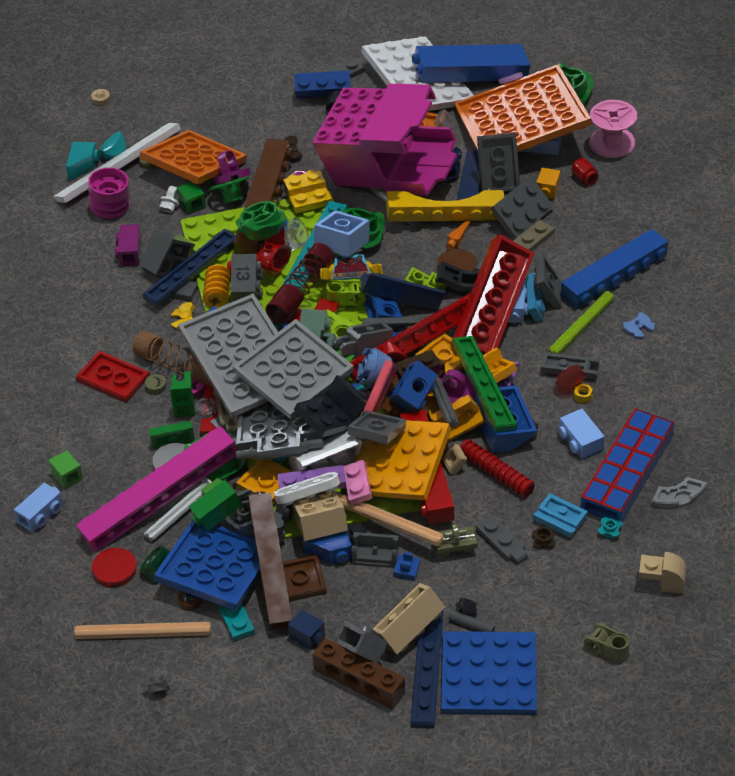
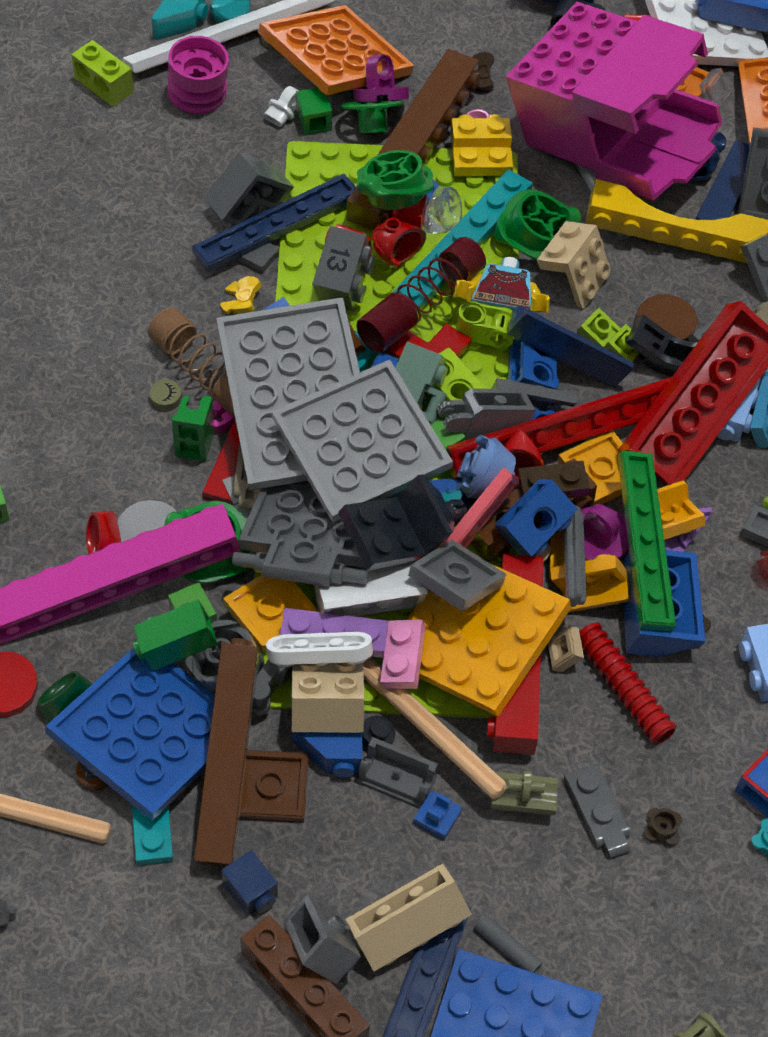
camera: 10 degrees right, 10 degrees up
(45, 207) = (102, 73): none -> lime brick
(112, 376) = (108, 365): red tile -> none
(128, 245) = (200, 162): magenta brick -> none
(143, 466) = (101, 530): none -> red piece
(171, 433) = (160, 484): green panel -> none
(176, 512) = (124, 617): white axle -> none
(205, 408) = (222, 456): clear tile -> none
(216, 286) = (299, 265): light orange piece -> none
(342, 233) = (507, 230): light blue brick -> none
(391, 236) = (579, 254): none -> tan bracket
(455, 238) = (678, 275): orange piece -> none
(466, 606) = (508, 915): black plate -> none
(560, 515) = (700, 794): dark azure plate -> none

